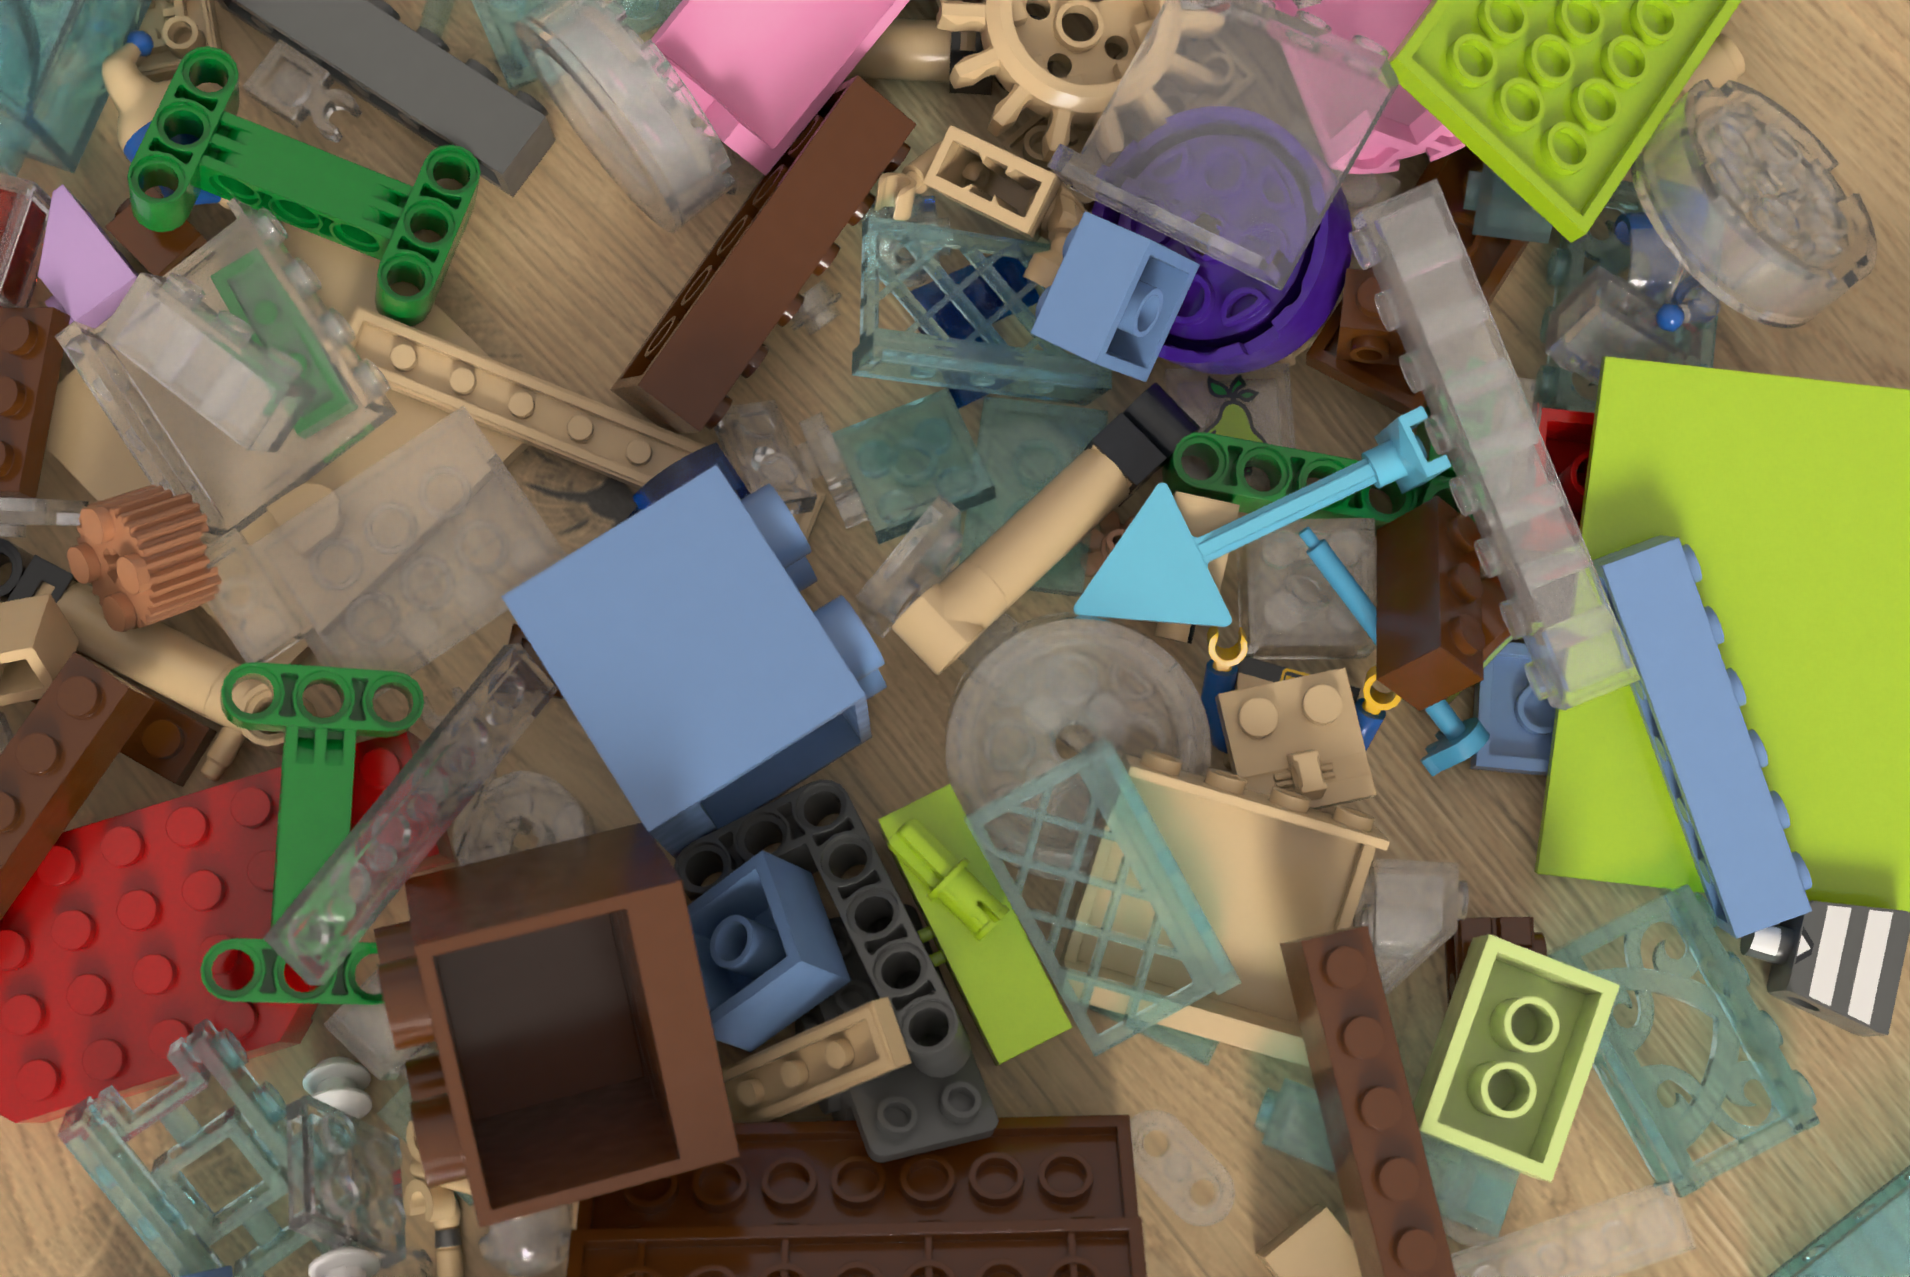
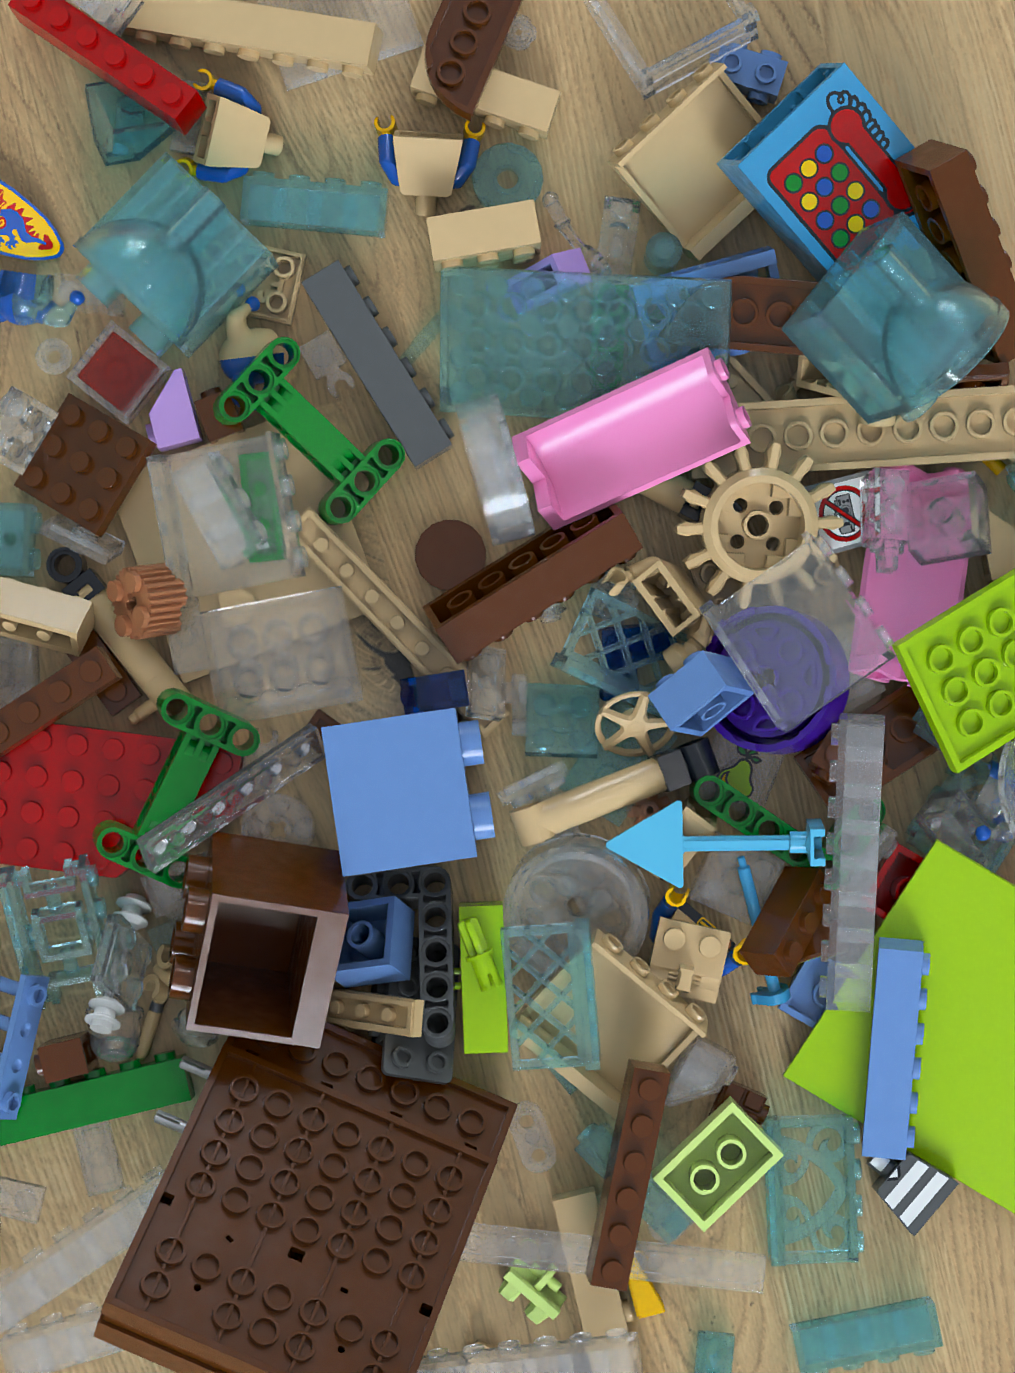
camera: 20 degrees right, 10 degrees up
(618, 294) = (449, 553): none -> reddish brown tile
(1032, 410) = (633, 723): none -> tan wheel

